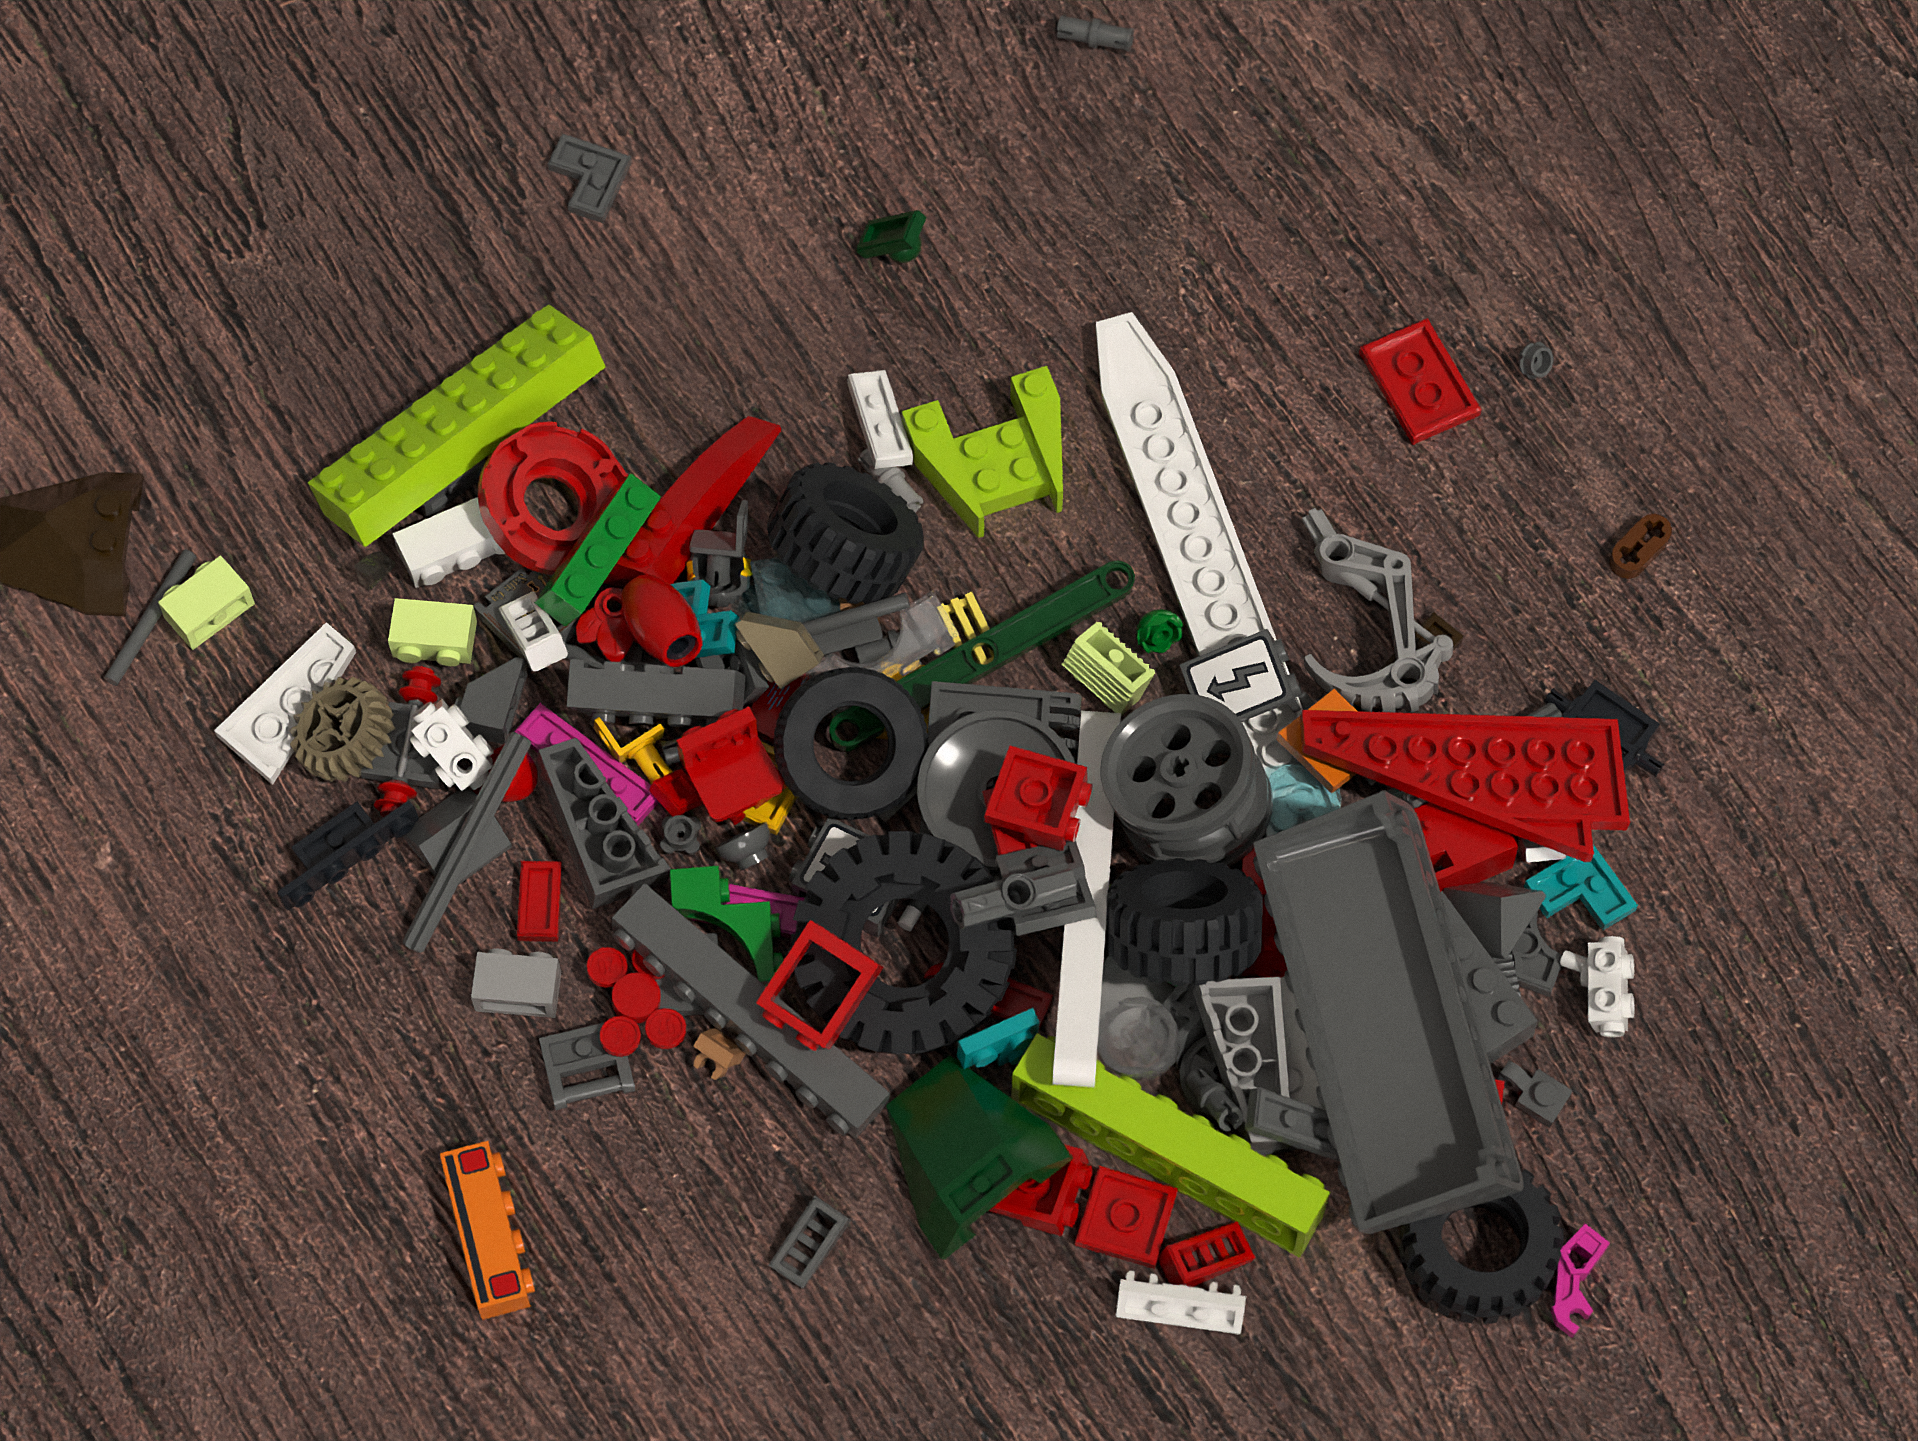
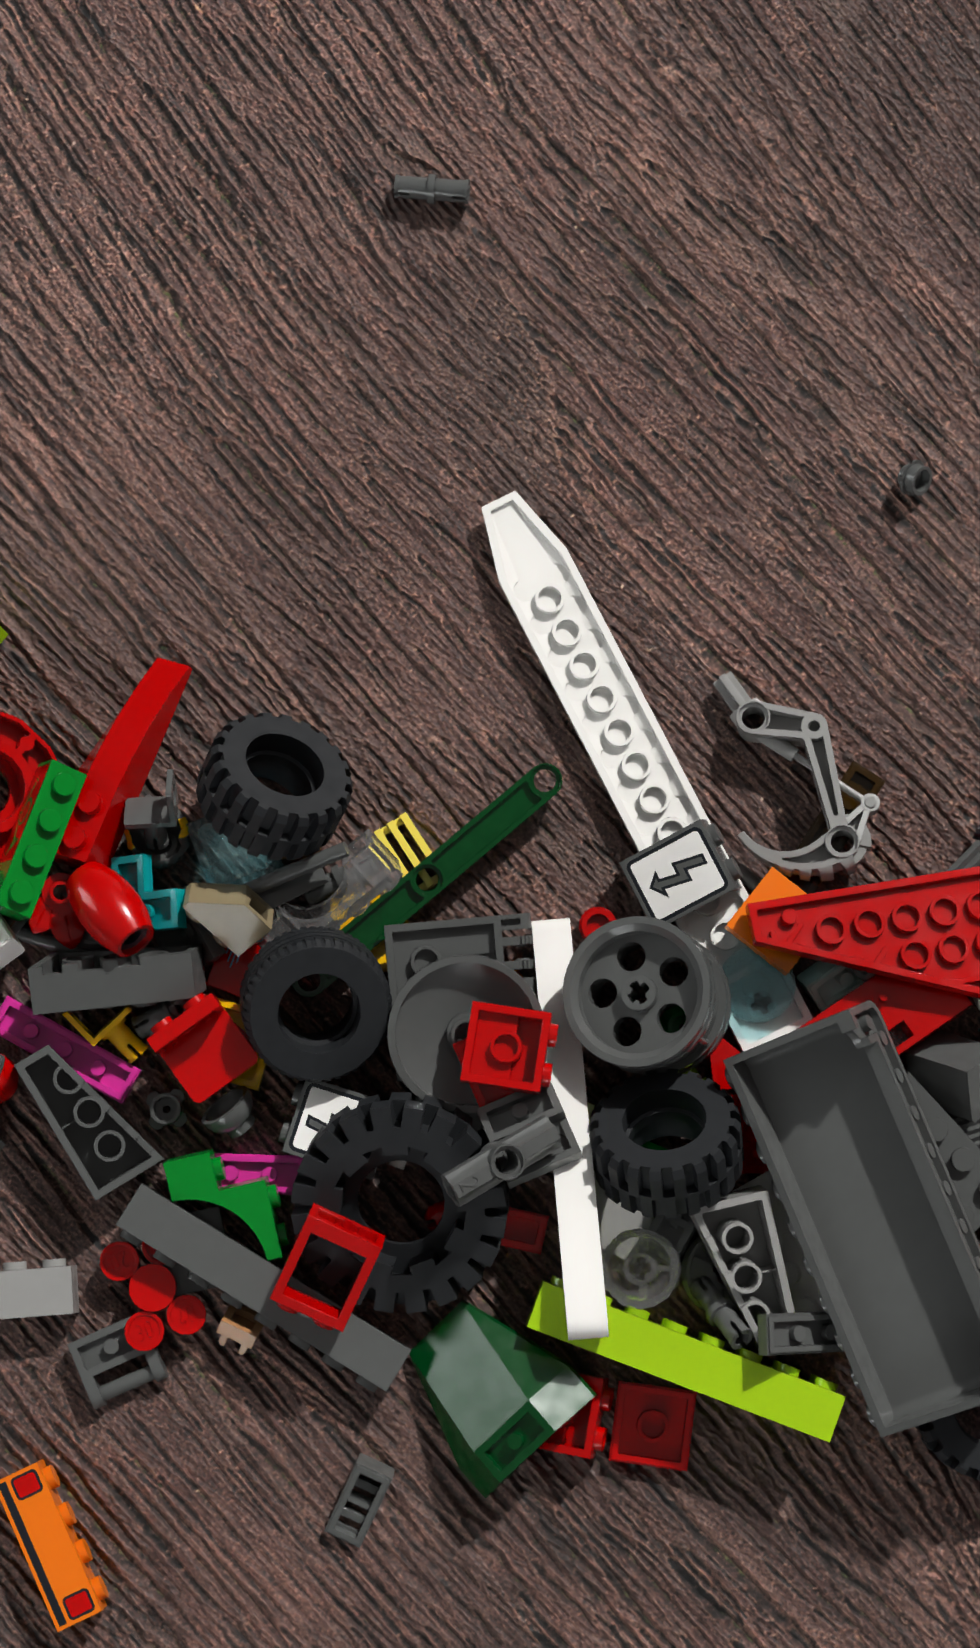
camera: 10 degrees left, 15 degrees up
(539, 901) = (43, 1198): red tile -> none
(675, 793) = (152, 1071): red tile -> none
(880, 419) = (287, 645): white tile -> none
(893, 236) = (267, 446): dark green tile -> none
(894, 479) = (307, 706): light grey pin -> none
(996, 464) = (410, 671): lime wedge -> none
(1000, 1042) = (520, 1279): teal plate -> none
(1108, 668) = (551, 876): yellowish green brick -> none
(1158, 630) = (591, 824): green plate -> none
(1181, 1305) = (717, 1507): white plate -> none
(1182, 1267) = (705, 1471): red slope -> none
(1420, 381) = (805, 516): red tile -> none

